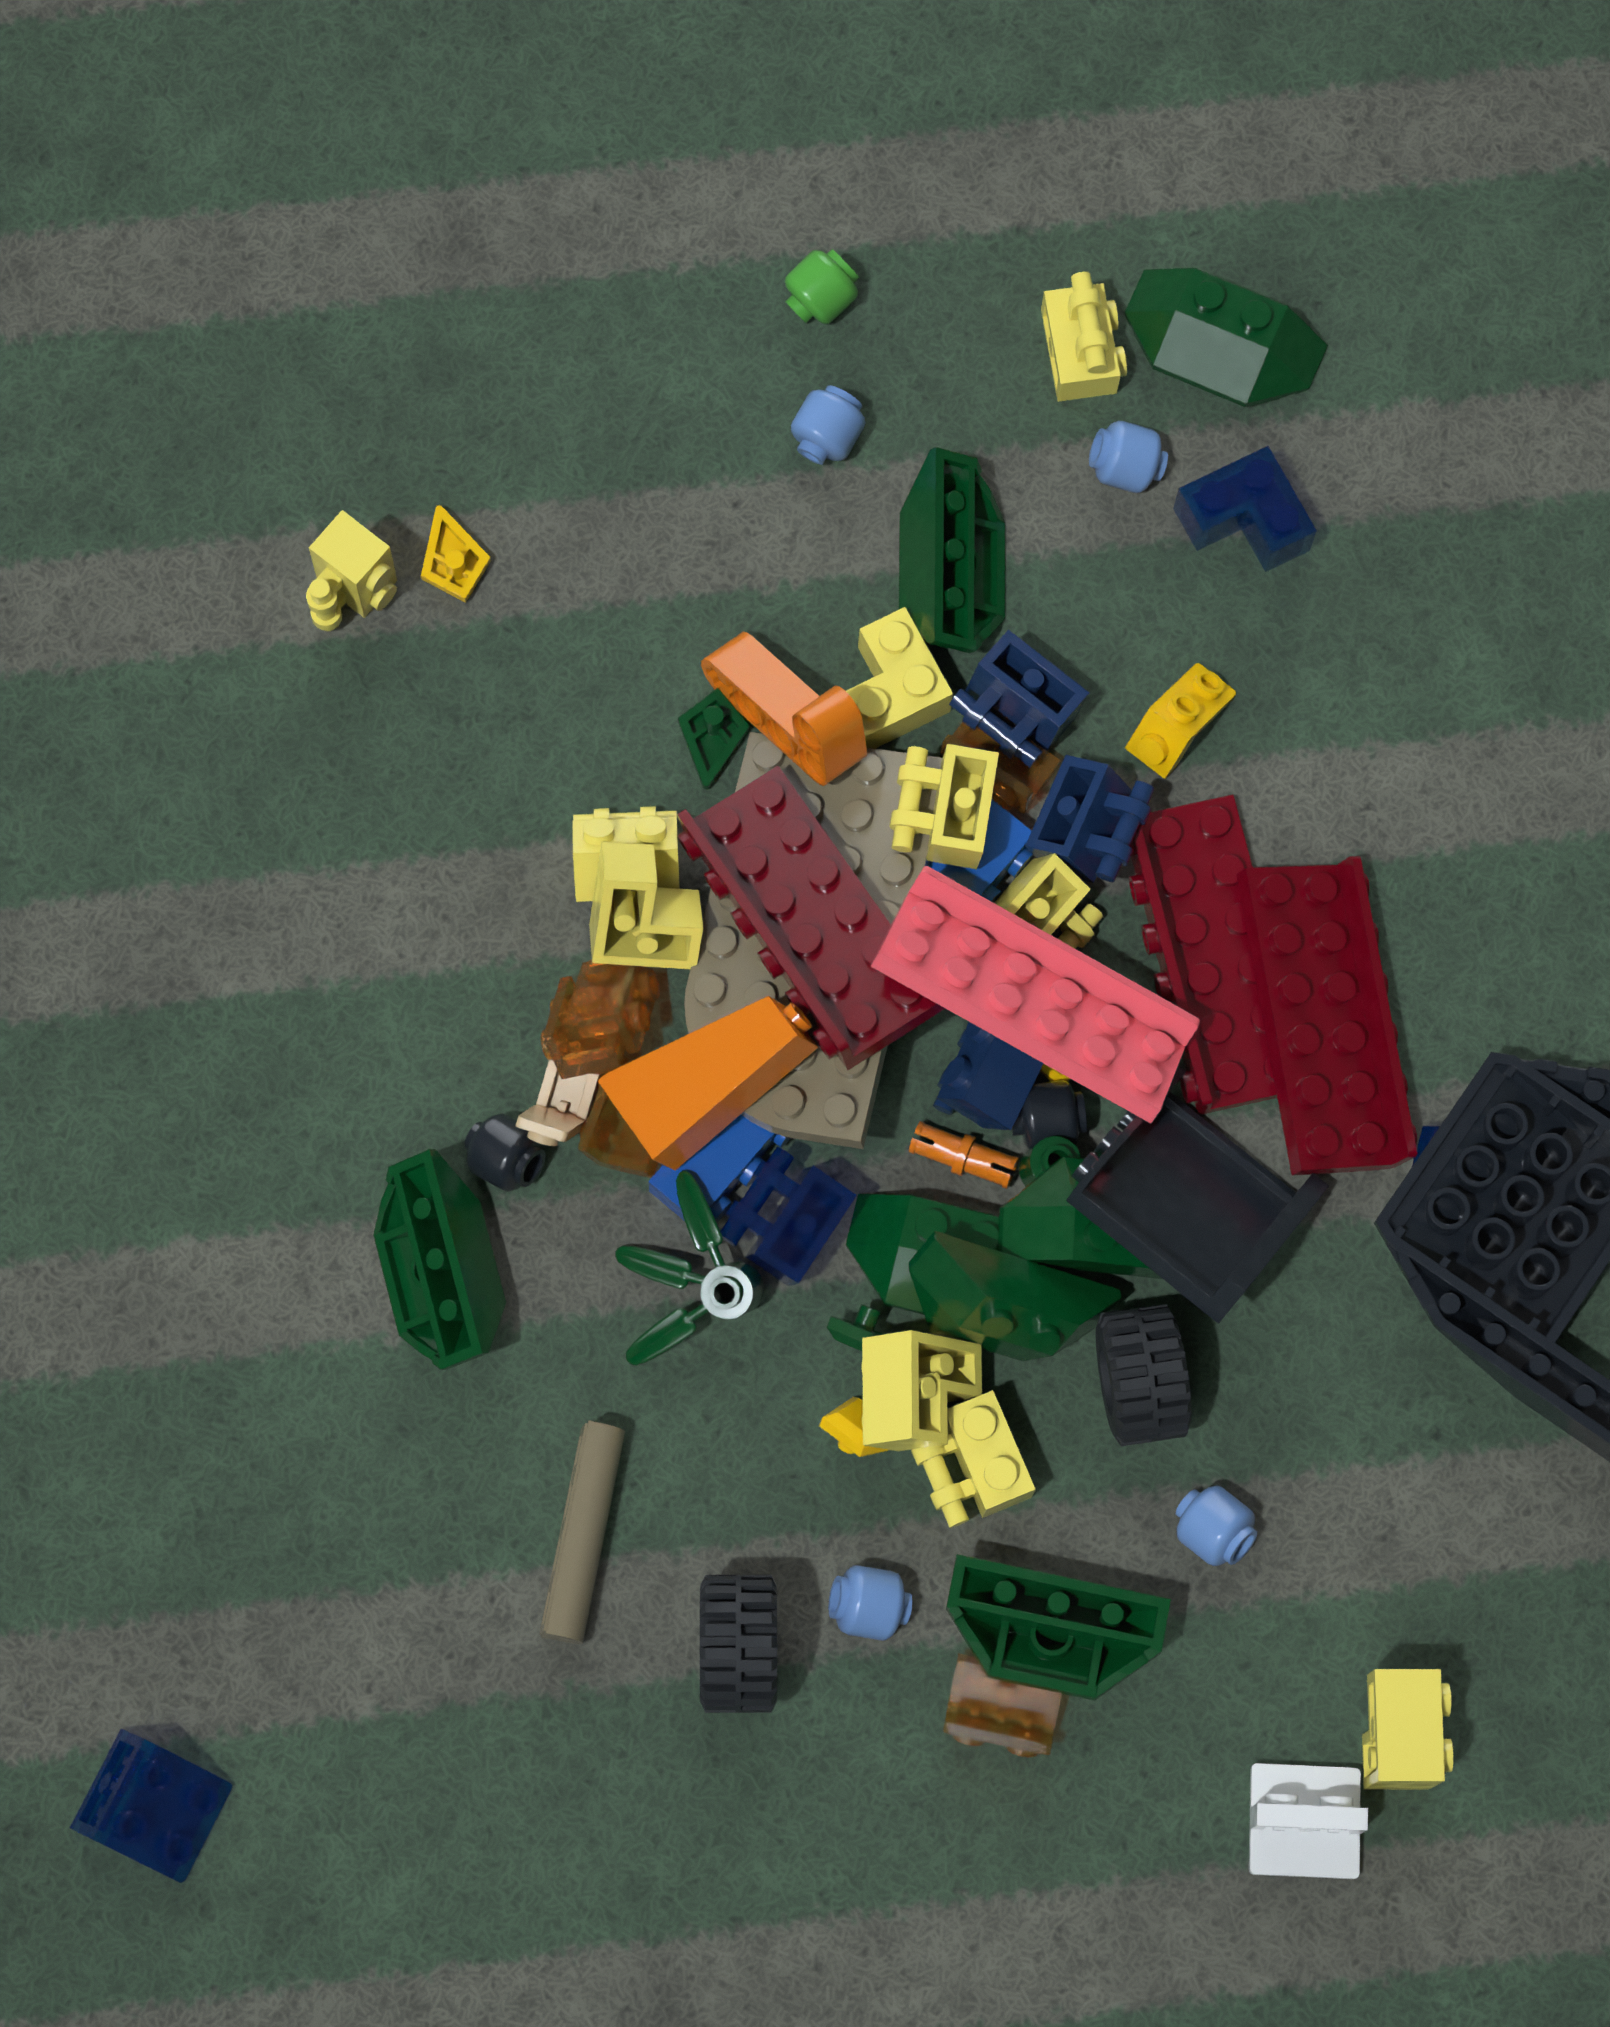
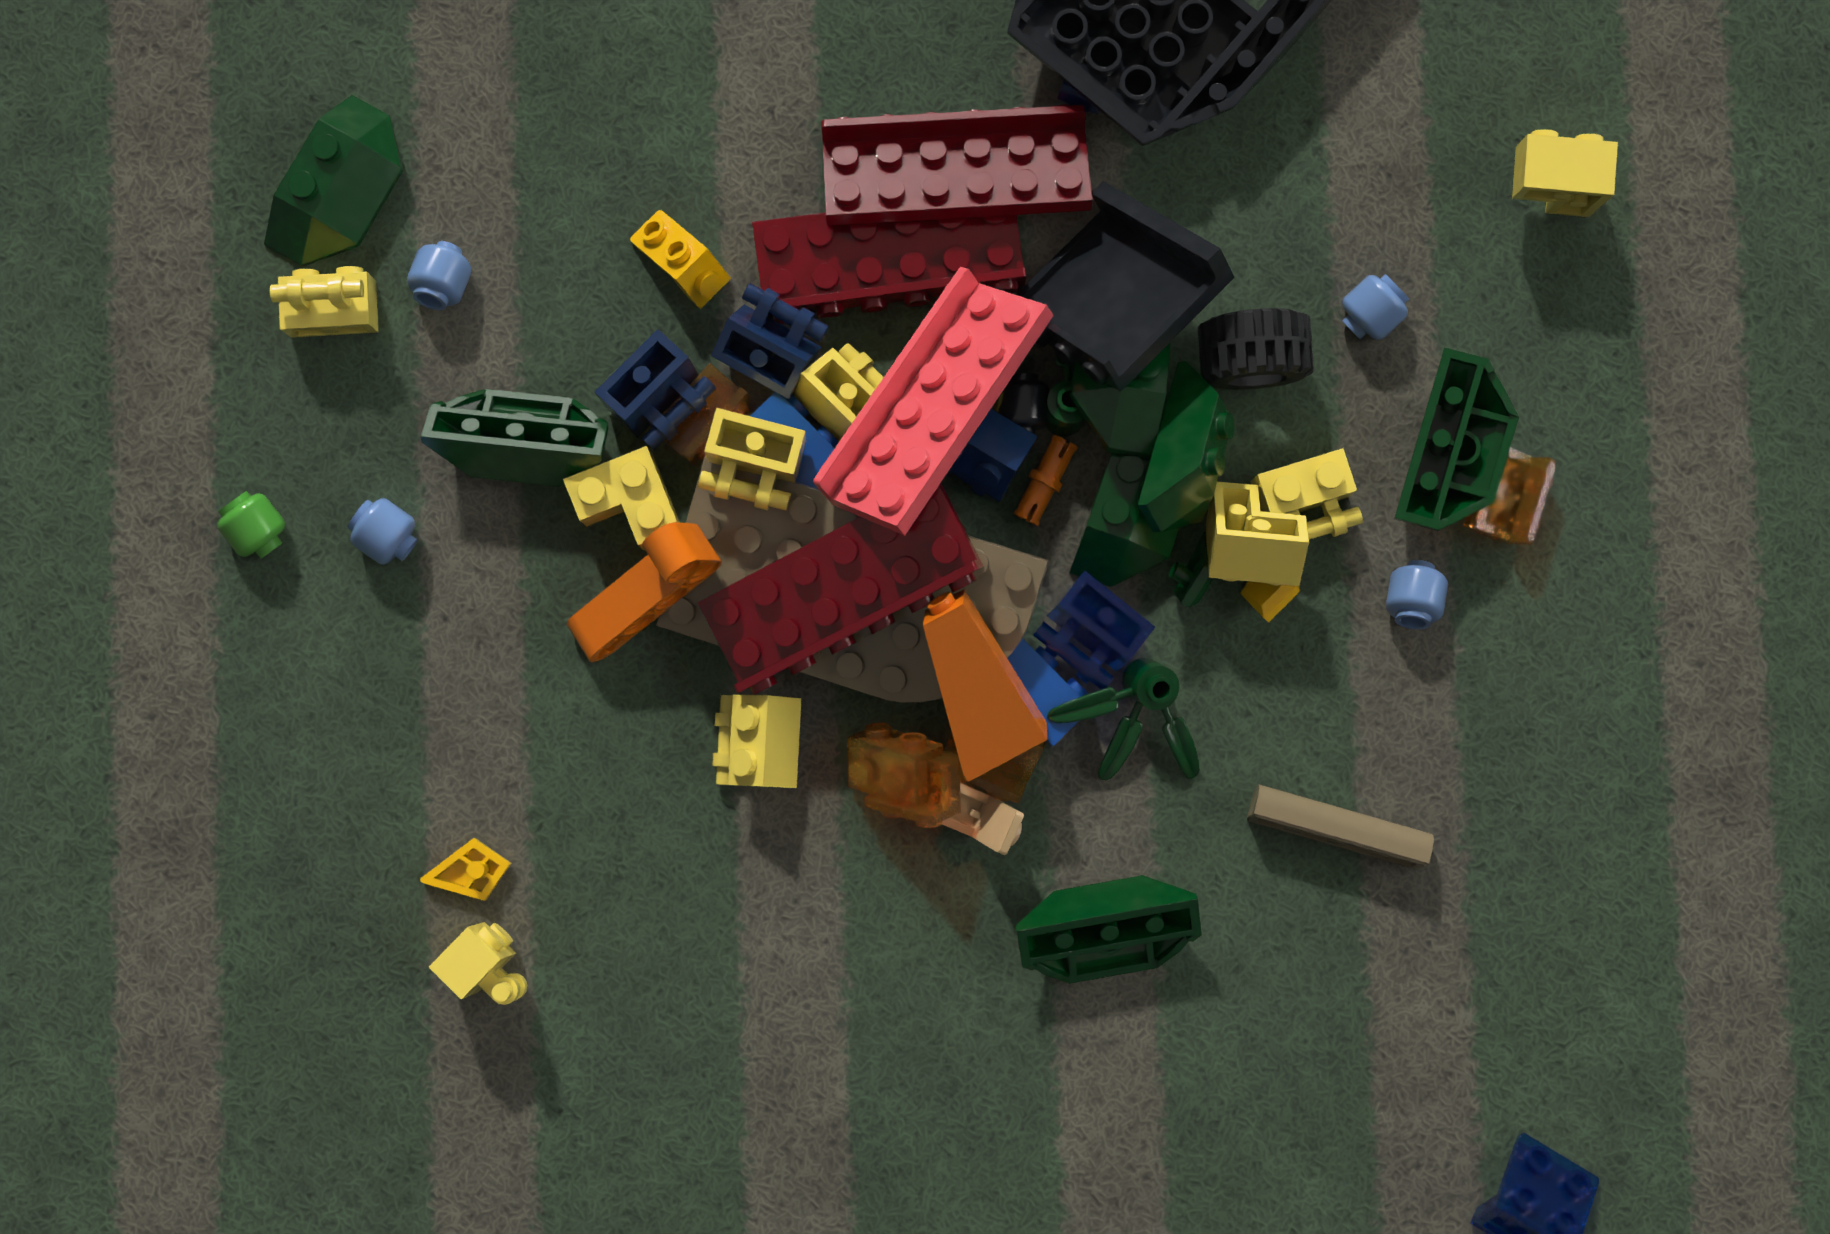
camera: 80 degrees left, 10 degrees up
(503, 1153) = (1015, 872): black head -> none
(636, 919) = (823, 734): light yellow brick -> none
(712, 734) = (654, 658): dark green piece -> none
(738, 1643) = (1453, 704): black tyre -> none
(1250, 498) = (492, 169): clear blue brick -> none
(1305, 1821) = (1614, 263): white bracket -> none

